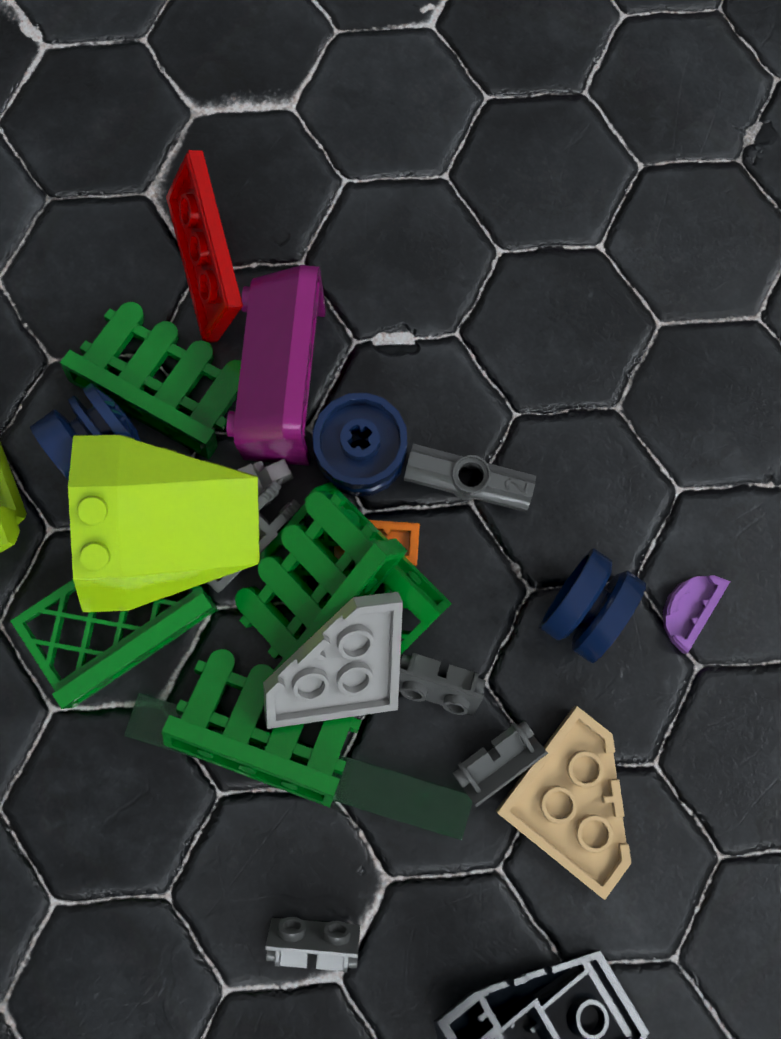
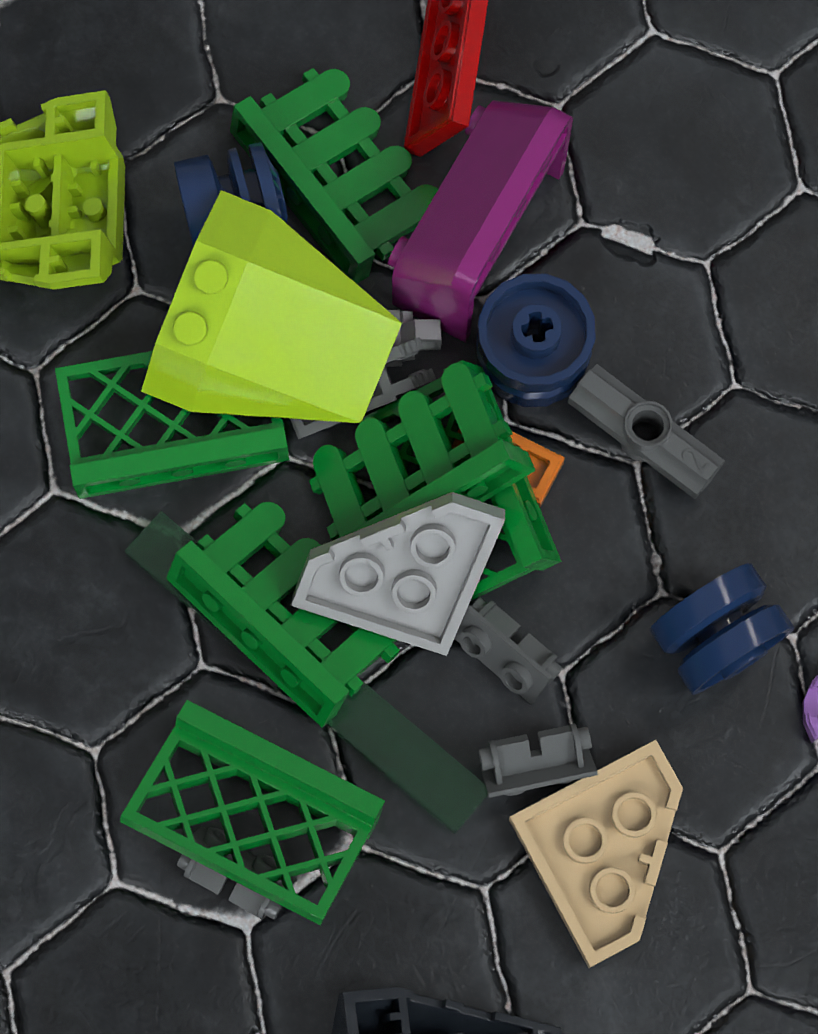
camera: 25 degrees right, 5 degrees down
(308, 859) = (275, 771): none -> green fence

